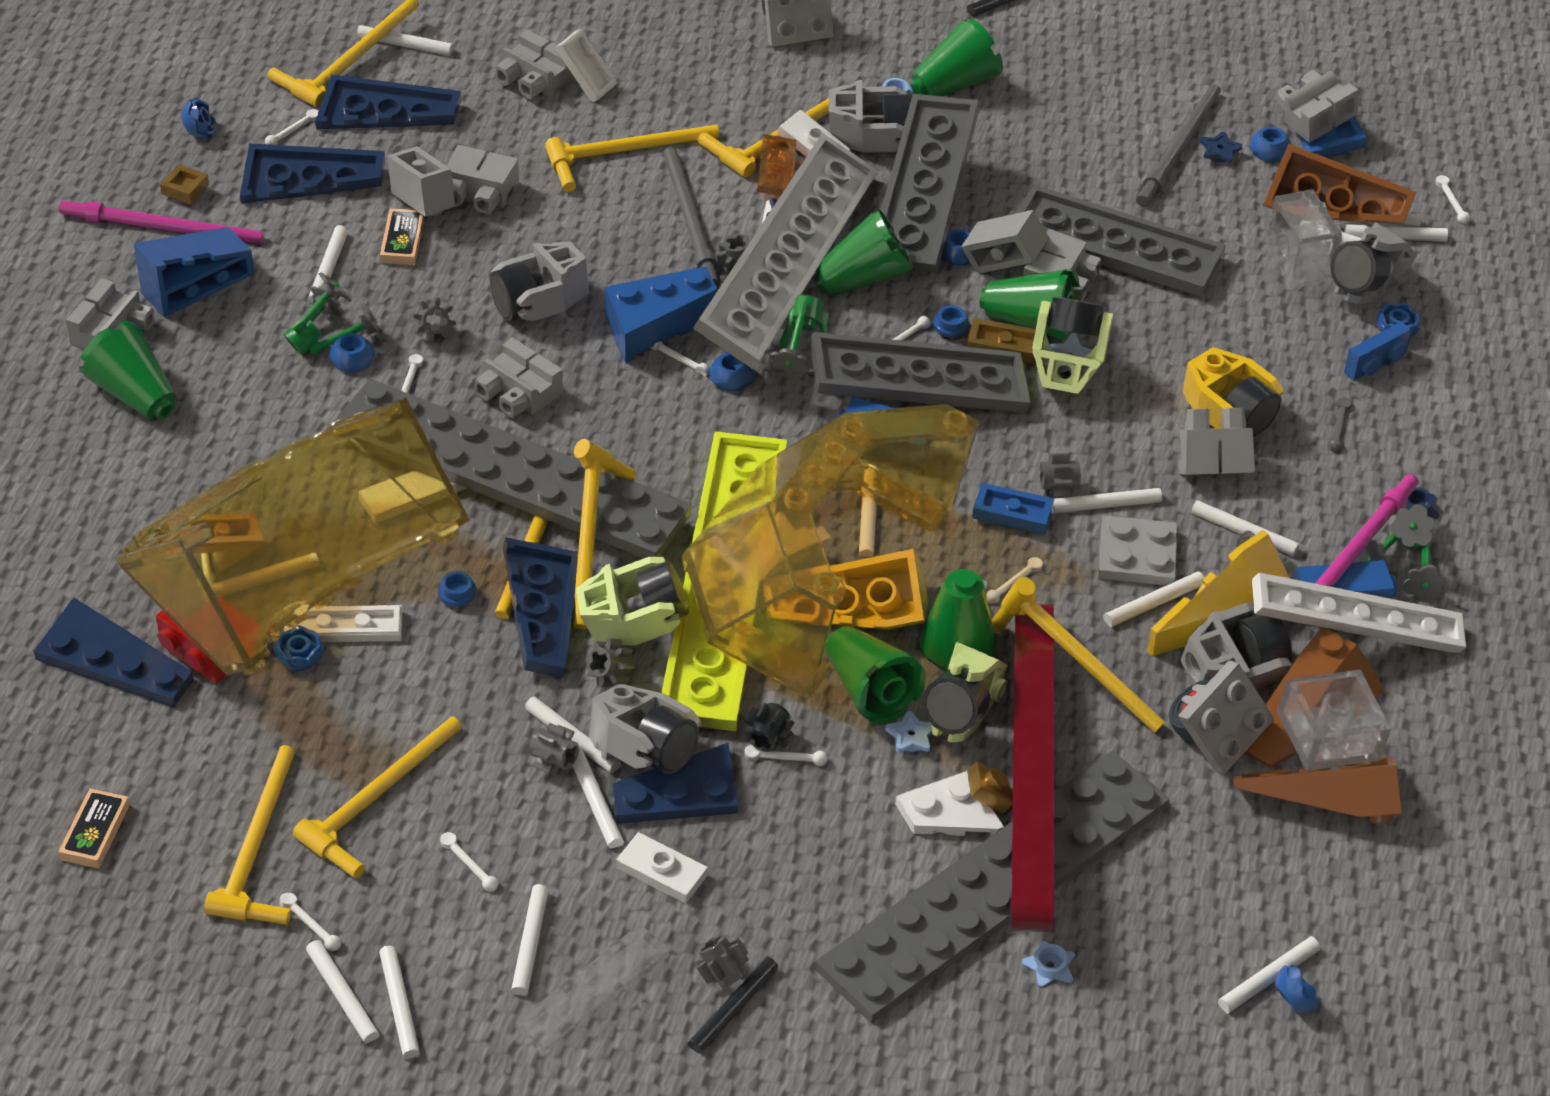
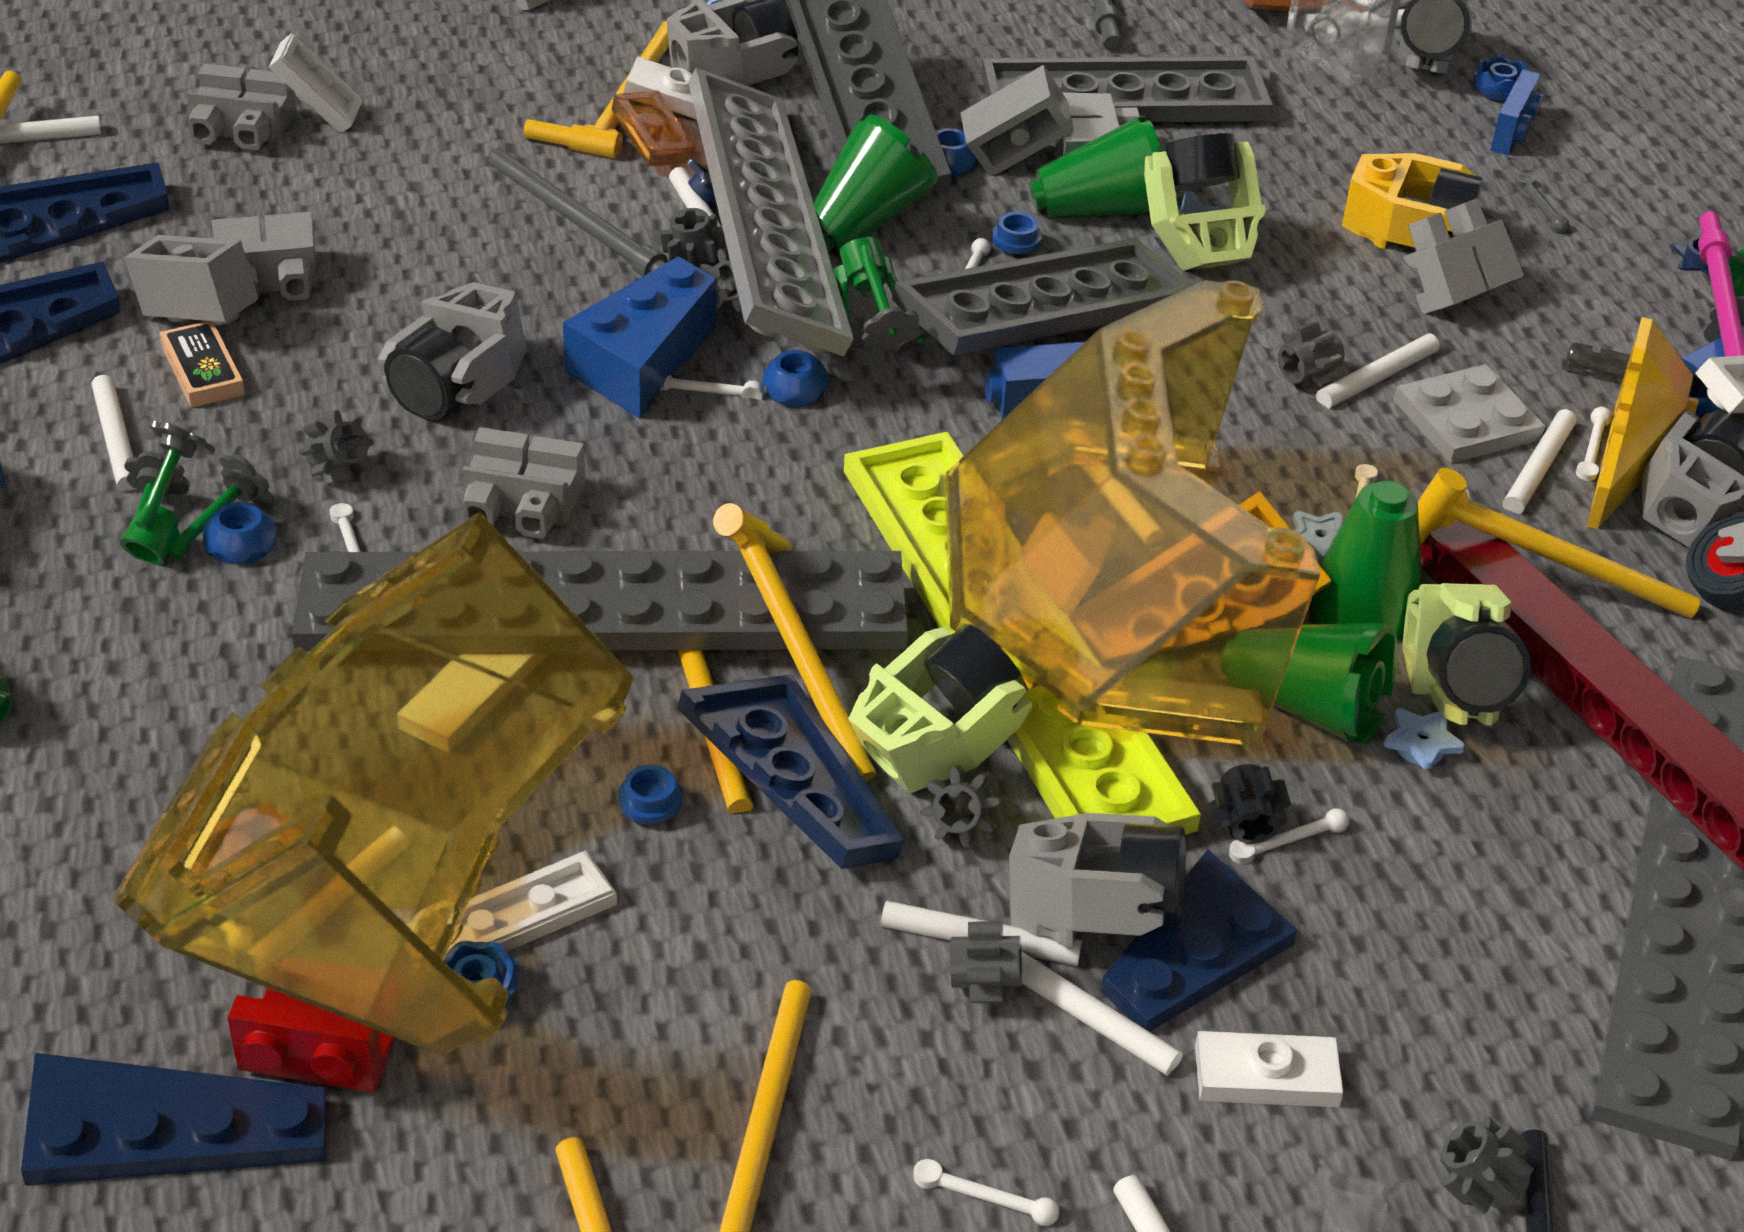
camera: 30 degrees left, 5 degrees down
(563, 155) = (358, 201): yellow bar -> none
(947, 808) = (1557, 814): white wing -> none
(990, 787) = (1591, 760): pearl gold plate -> none
(1002, 337) = (1099, 228): pearl gold plate -> none
(1013, 508) = (1288, 416): blue plate -> none
(1240, 526) = (1547, 344): white bar -> none

